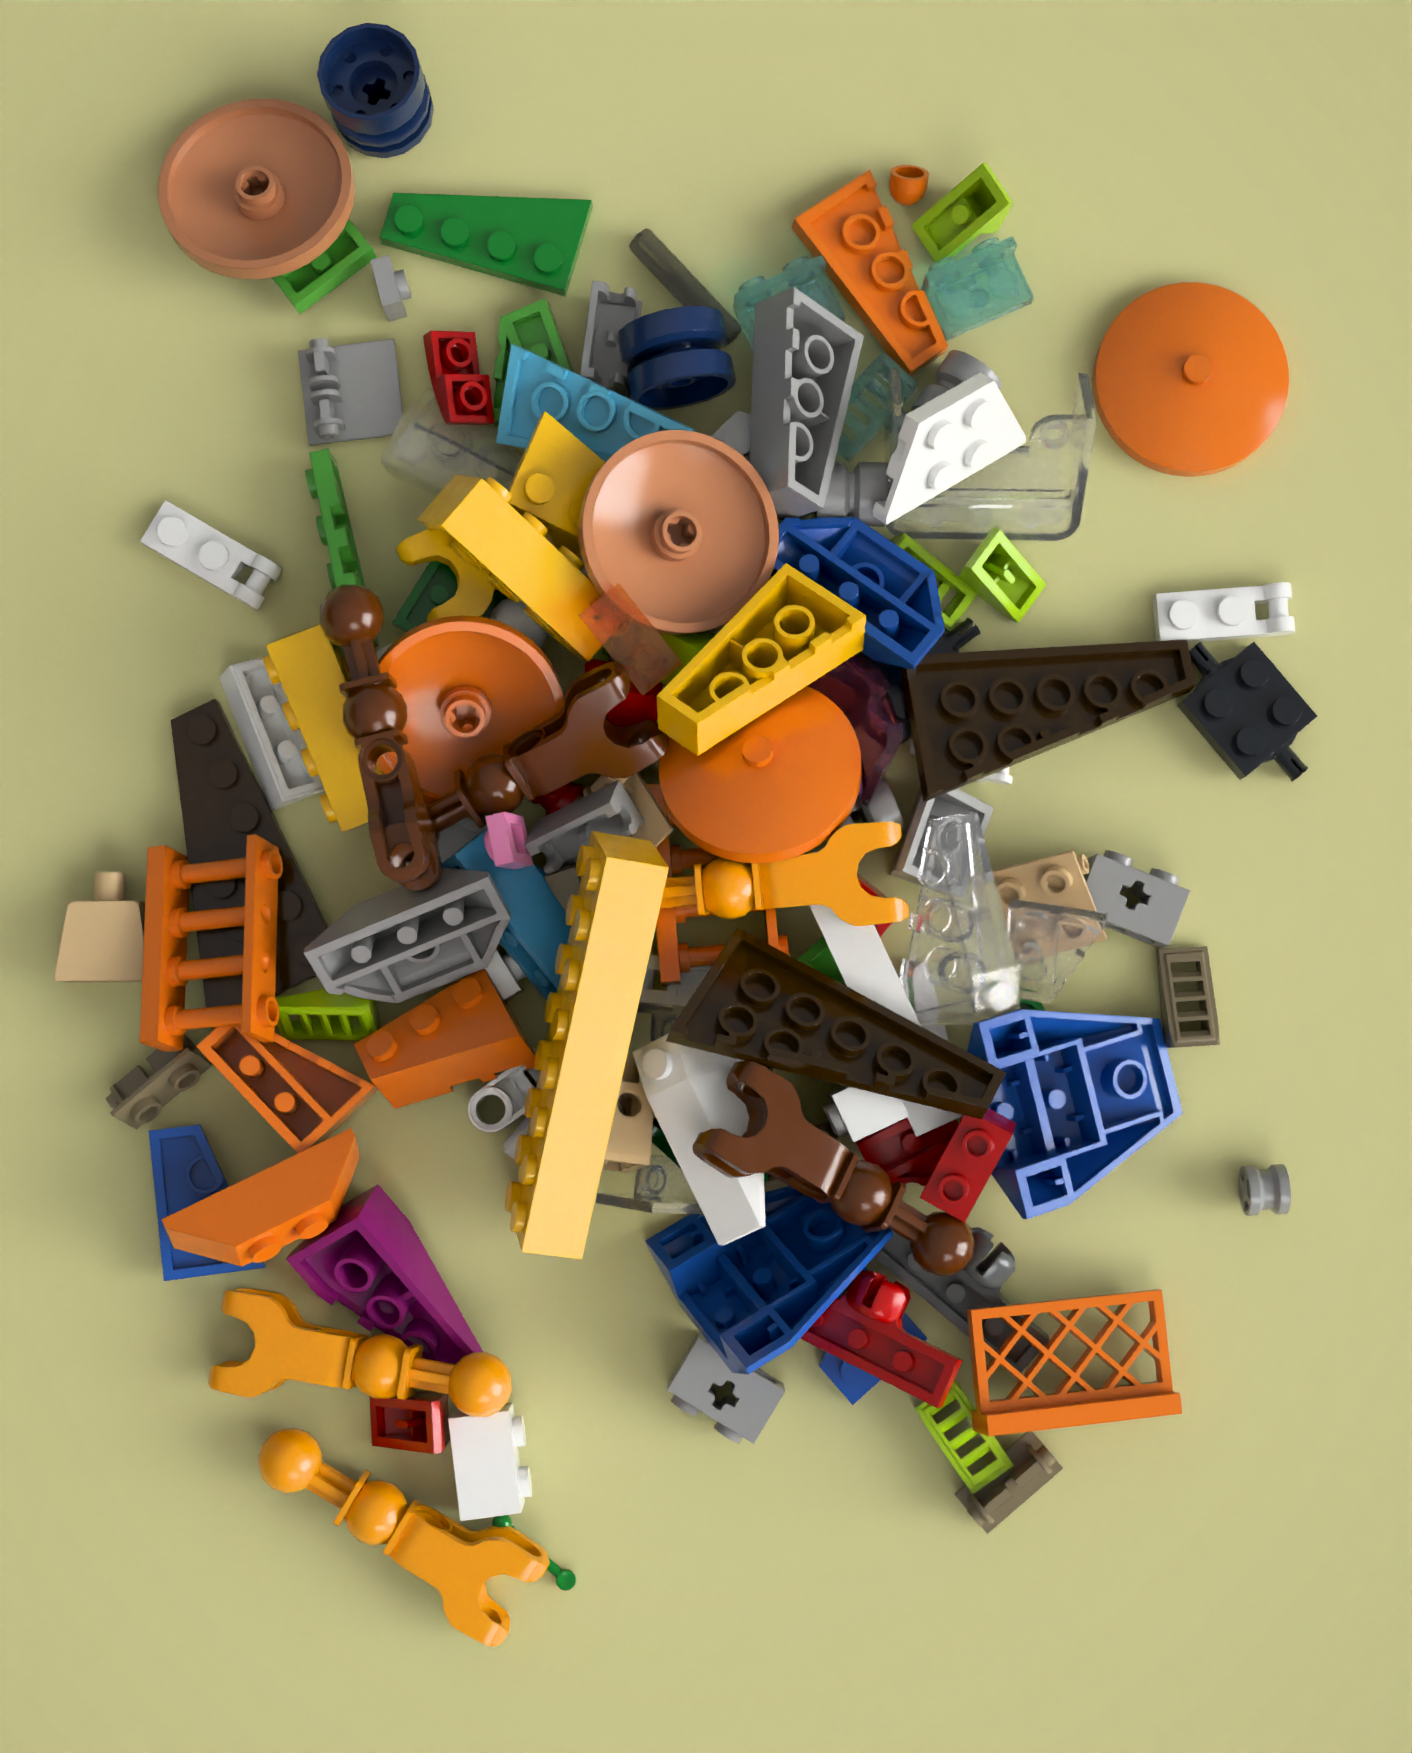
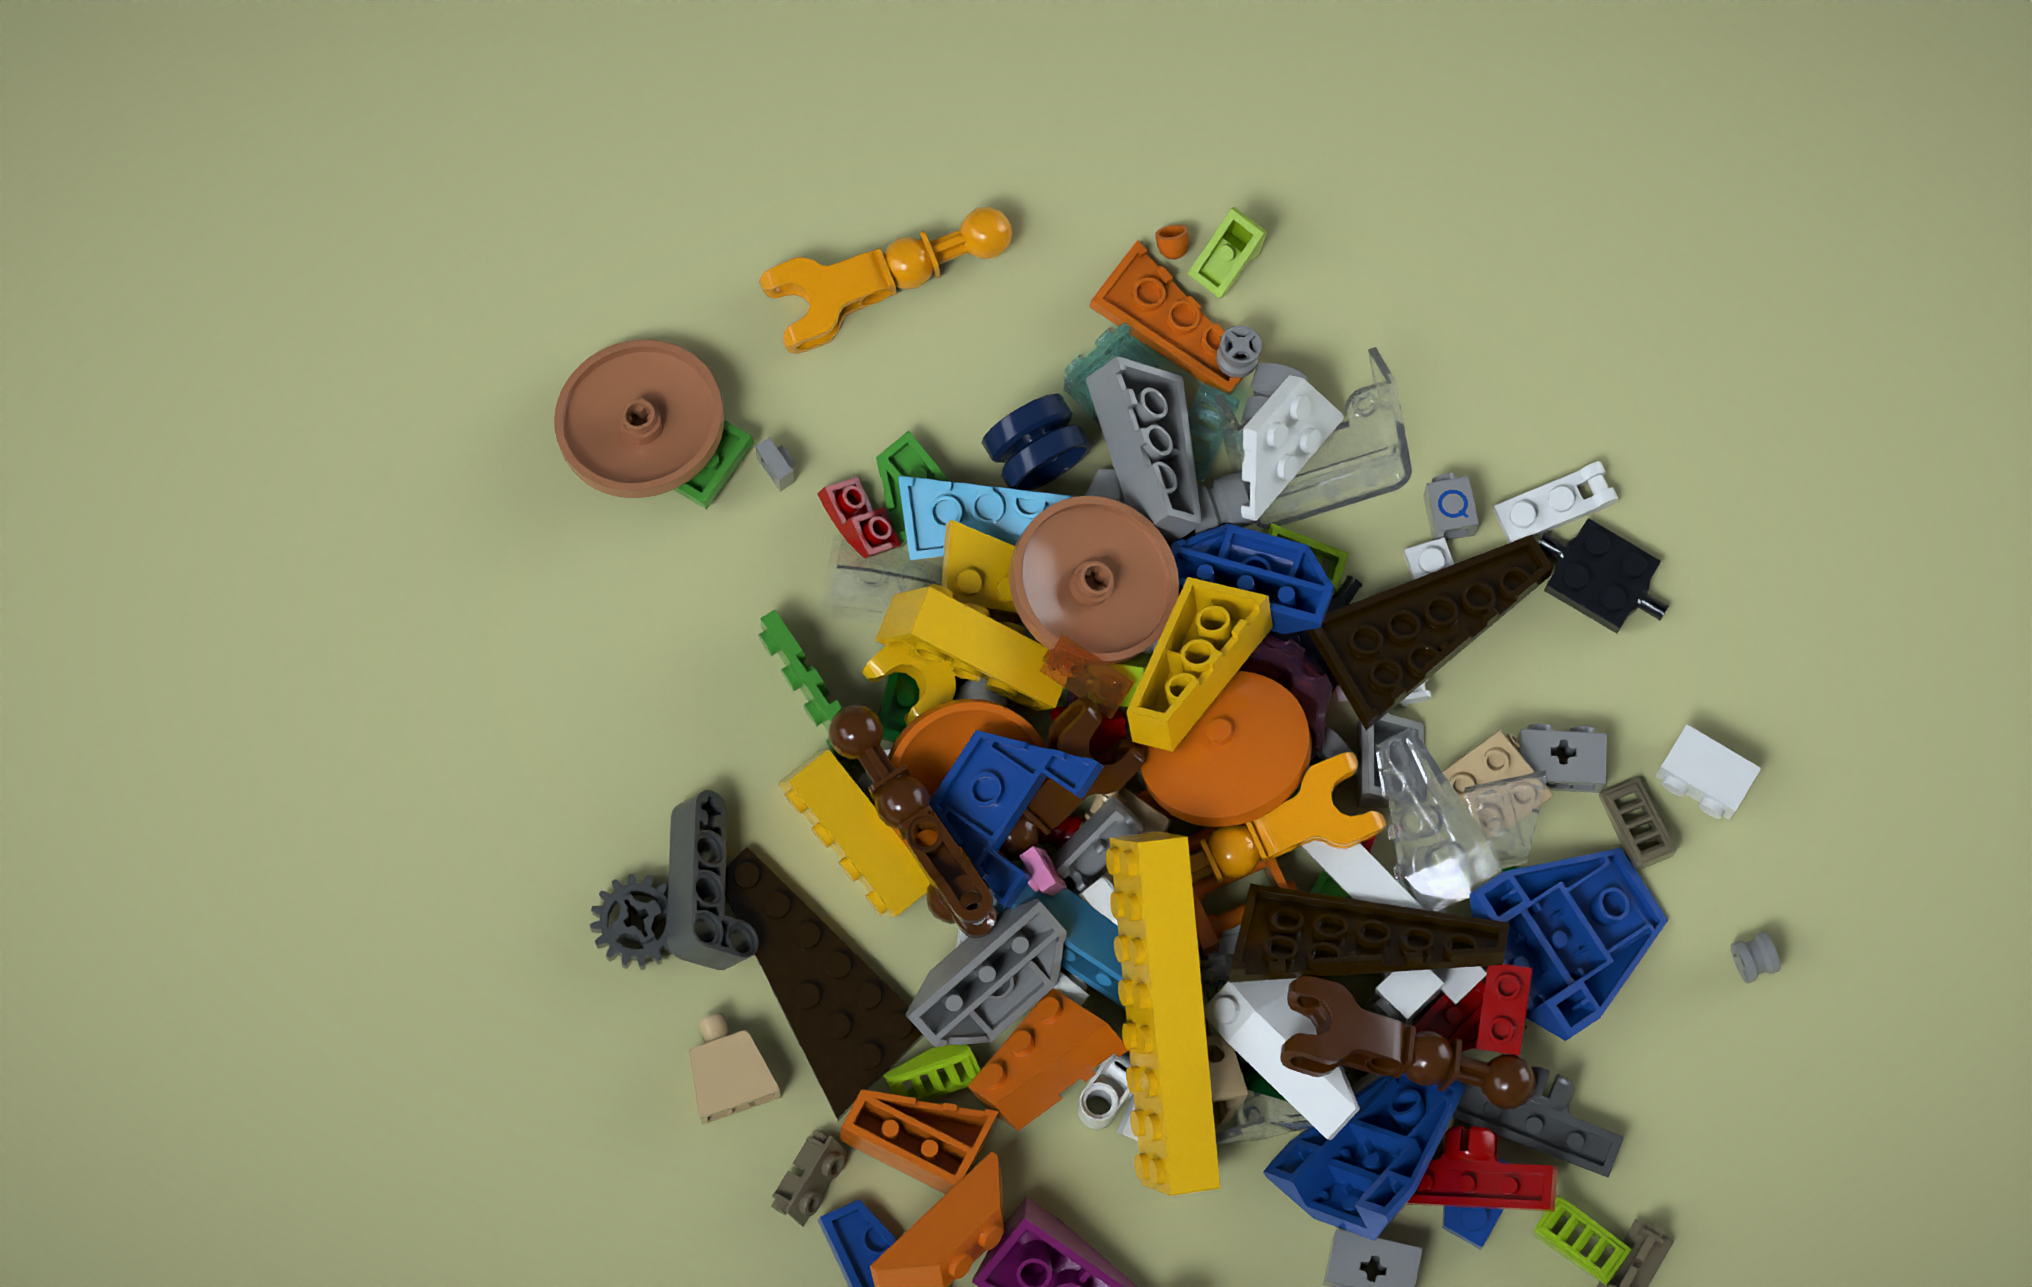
camera: 20 degrees left, 10 degrees down
(47, 743) = (622, 931): none -> dark grey gear
(153, 724) = (696, 888): none -> dark grey beam
(165, 945) = (780, 1039): orange fence -> none
(209, 554) = (700, 731): white plate -> none
(267, 735) = (801, 859): white slope -> none
(350, 390) = (770, 558): light grey hinge -> none
(375, 90) = (708, 286): dark blue wheel -> none
(474, 737) = (989, 794): none -> blue wing
(495, 235) = (853, 391): green wing -> none
(564, 115) = (874, 275): none -> light orange piece
(601, 351) = (966, 432): light grey hinge -> none
(678, 278) = (1009, 378): clear smoke axle -> none
(942, 318) = (1238, 341): none -> light grey wheel
(976, 287) = (1262, 303): clear light blue bracket -> none
(1002, 576) = (1364, 532): lime slope -> none
(1062, 628) = (1427, 558): none -> white plate
(1074, 1407) = (1656, 1184): orange fence -> none
(1107, 580) = (1450, 507): none -> light grey brick
(1190, 379) = (1460, 324): orange dish -> none
(1284, 969) = (1707, 773): none -> white brick

